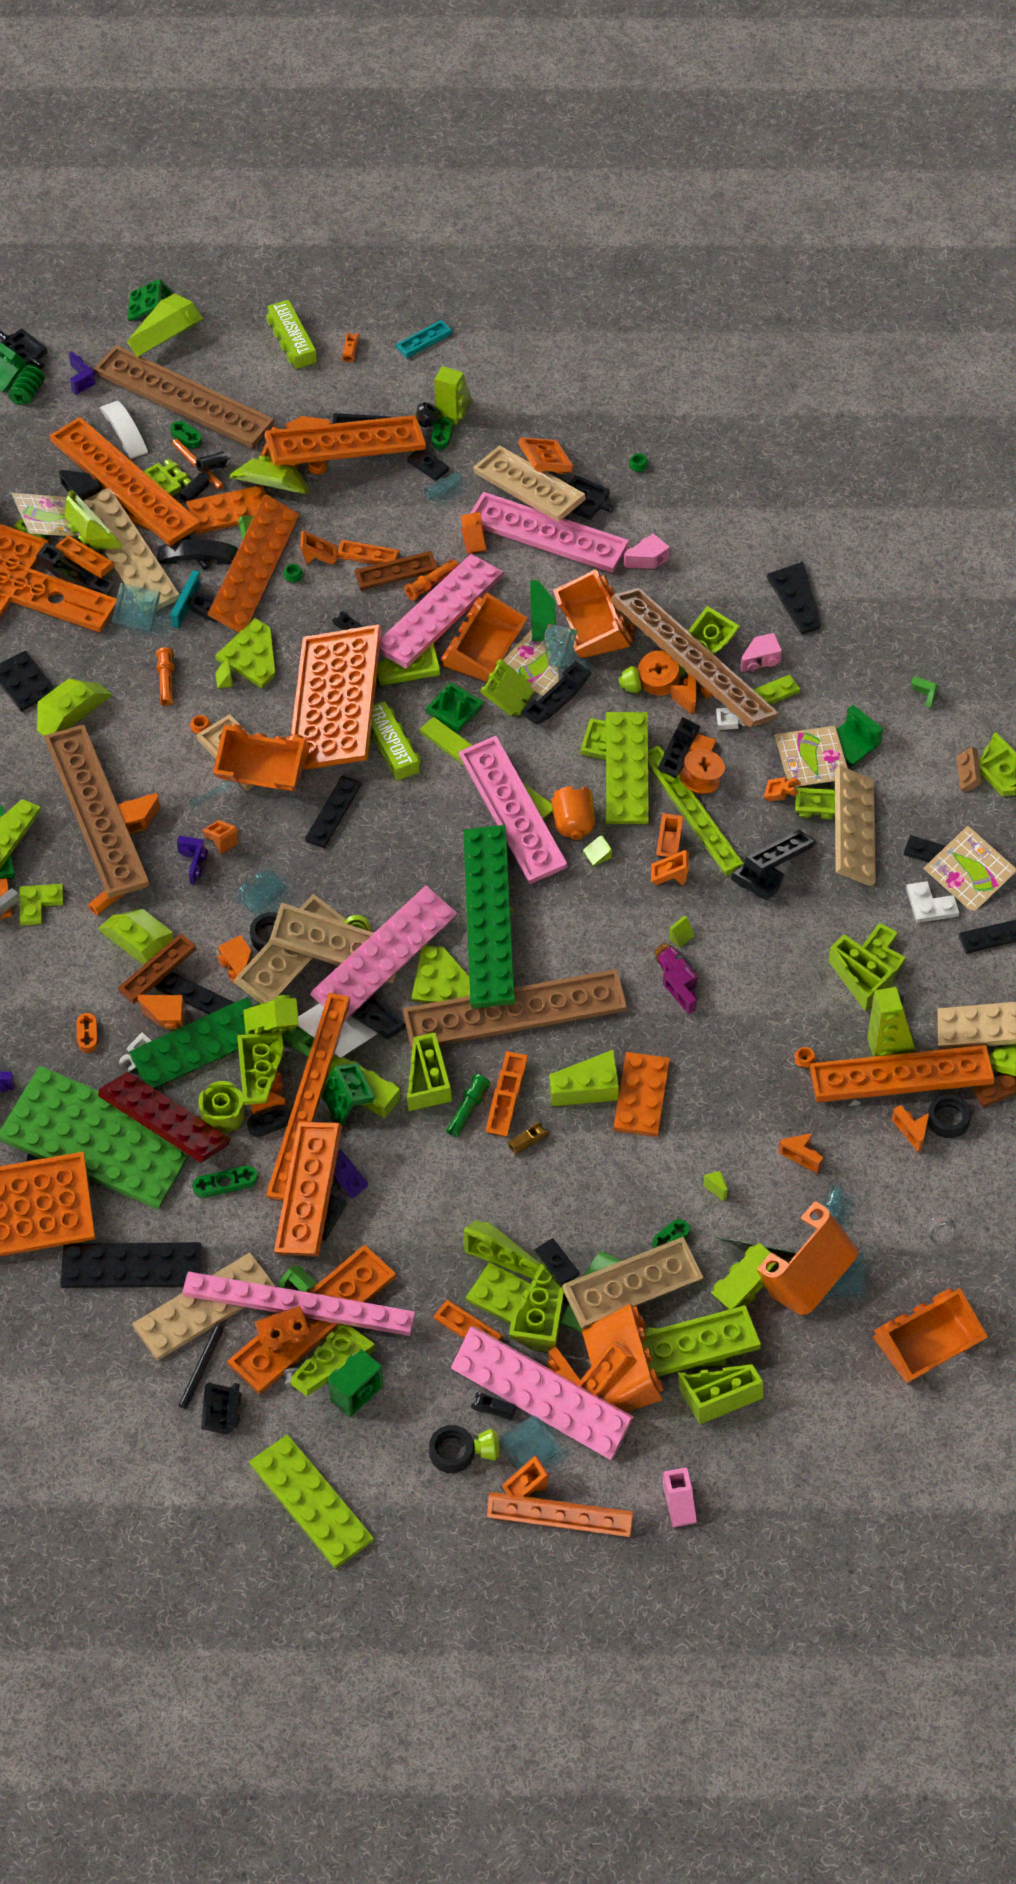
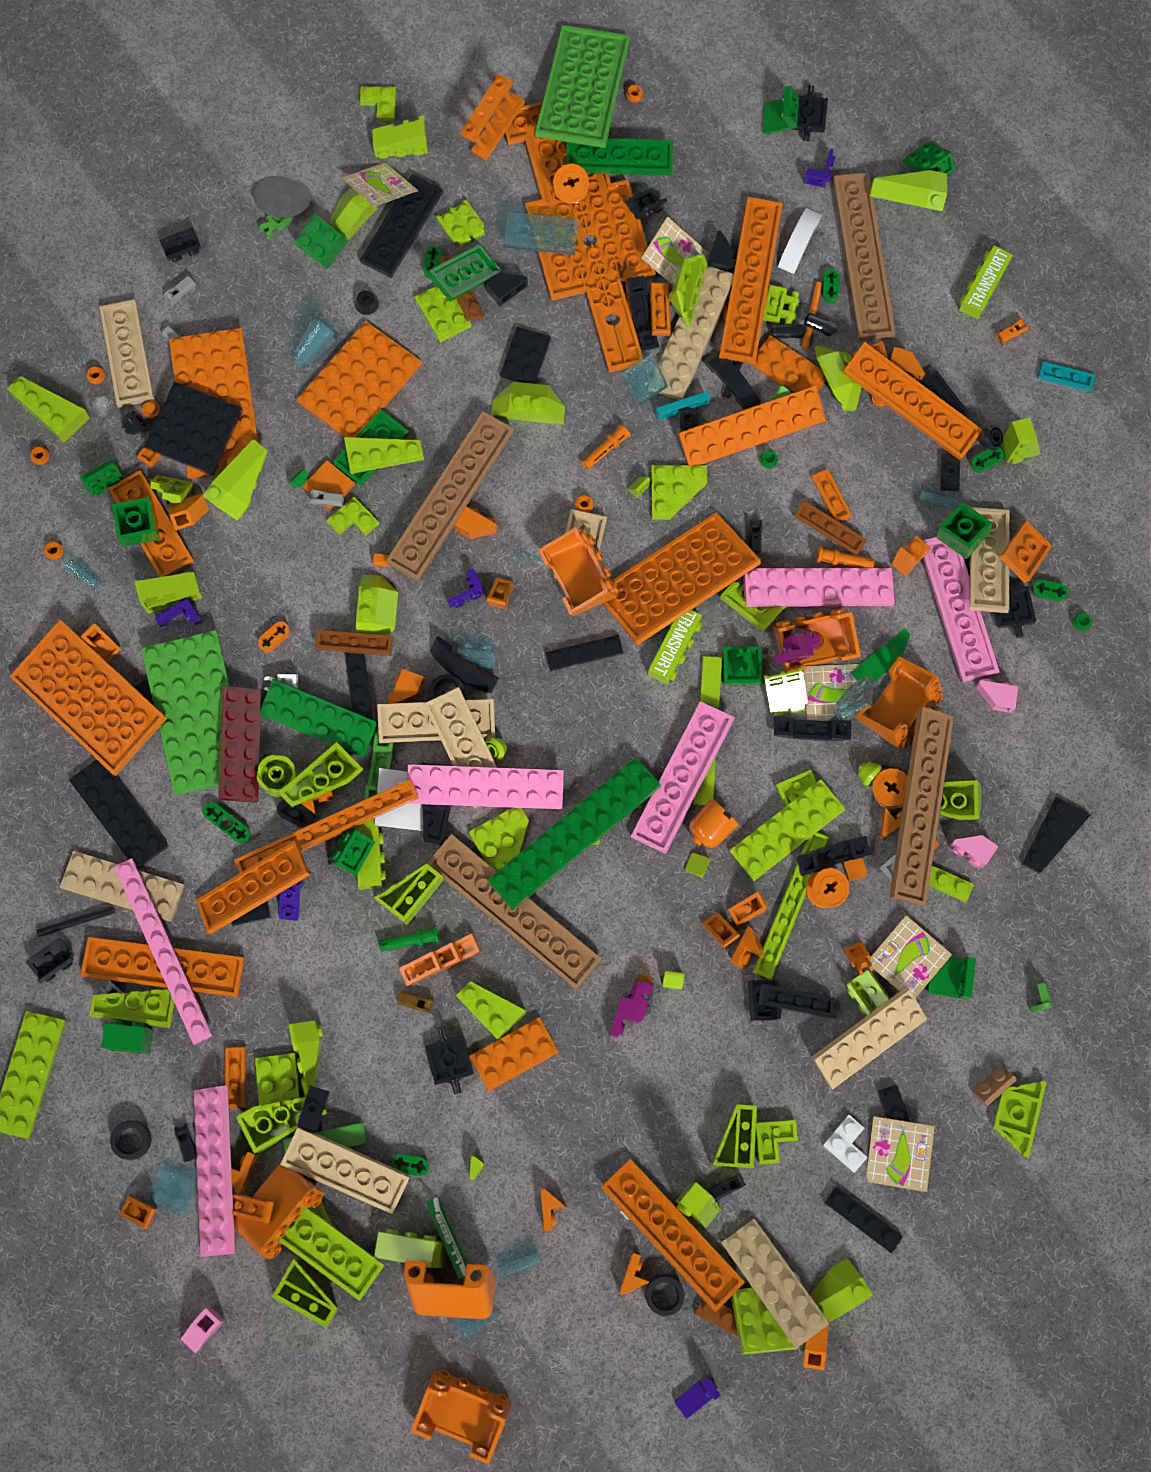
camera: 50 degrees right, 20 degrees up
(26, 385) = (780, 143): green piece -> none
(164, 1010) = (321, 677): orange slope -> none
(250, 907) = (457, 666): none -> black slope
(272, 1016) = (364, 757): lime wedge -> none
(282, 1328) = (129, 957): orange brick -> none
(299, 1278) = (185, 936): bright green tile -> none
(318, 548) = (801, 459): orange slope -> none
(479, 648) = (799, 646): none -> magenta plate
(487, 1445) = (148, 1164): lime cone -> none
(489, 478) = (964, 530): none -> green brick
(560, 1514) = (133, 1254): orange tile -> none
(591, 465) = (1050, 586): none -> green beam
(603, 1143) = (449, 1060): none -> black plate
(702, 857) = (749, 944): none -> orange slope
(807, 1053) = (634, 1145): orange plate -> none

